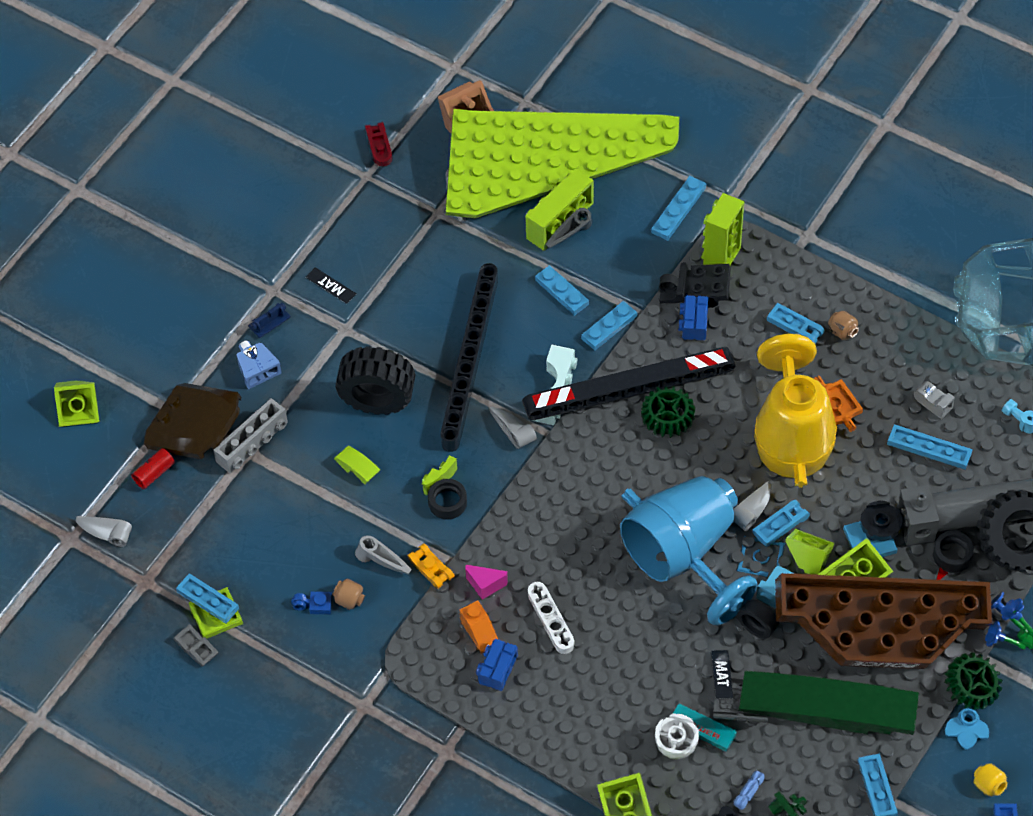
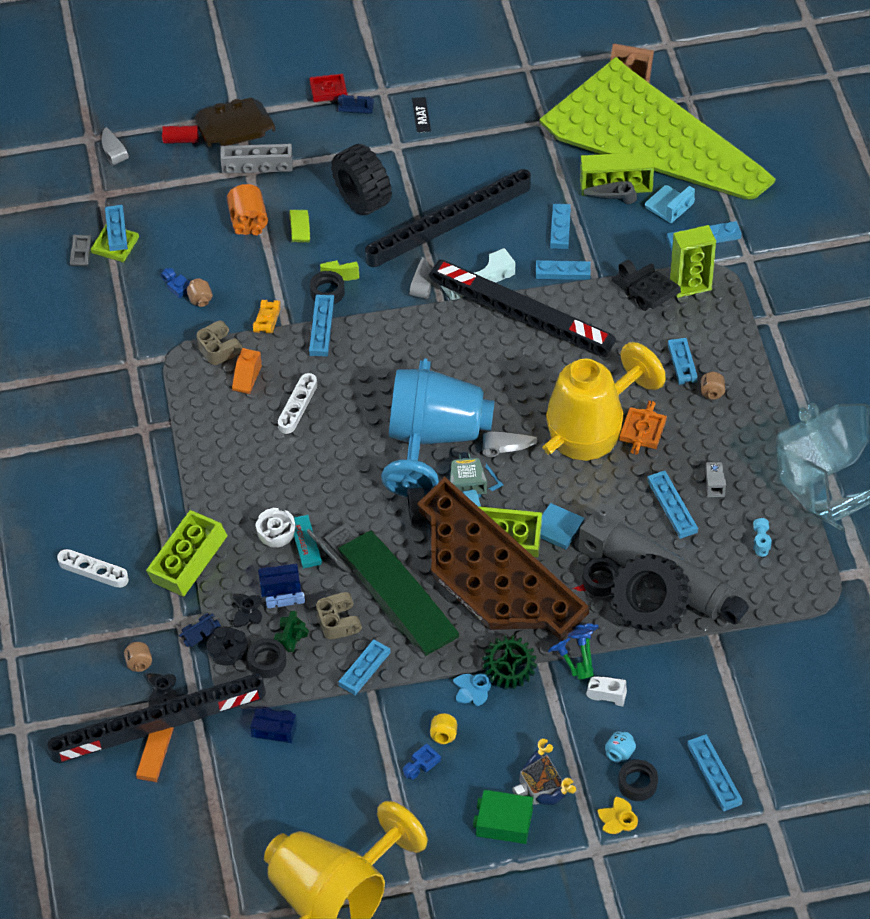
camera: 45 degrees right, 5 degrees down
(76, 403) = (182, 63): lime slope -> none
(226, 324) = (327, 87): none -> red tile
(257, 364) = (313, 123): medium blue torso -> none
(301, 487) = (247, 209): none -> orange cylinder
(372, 549) = (244, 281): light grey piece -> none
(379, 144) = (557, 53): dark red plate -> none
(424, 627) = (212, 348): none -> dark tan piece
(486, 580) = (285, 350): dark pink slope -> none
(488, 534) = (321, 325): none -> dark azure plate
(497, 664) = (229, 401): blue brick -> none
(624, 201) = (670, 203): none -> medium azure bracket
(668, 405) = (537, 343): dark green gear -> none
(694, 317) = (619, 304): blue brick -> none
(722, 674) = (357, 522): black sticker -> none
(727, 778) = (279, 580): none -> clear blue brick
(758, 558) = (468, 474): none -> sand green torso
(780, 523) = (512, 467): dark azure plate -> none
(806, 768) = (334, 605): none -> dark tan piece
(809, 551) = (506, 494): lime slope -> none
(878, 531) = (567, 510): black plate -> none

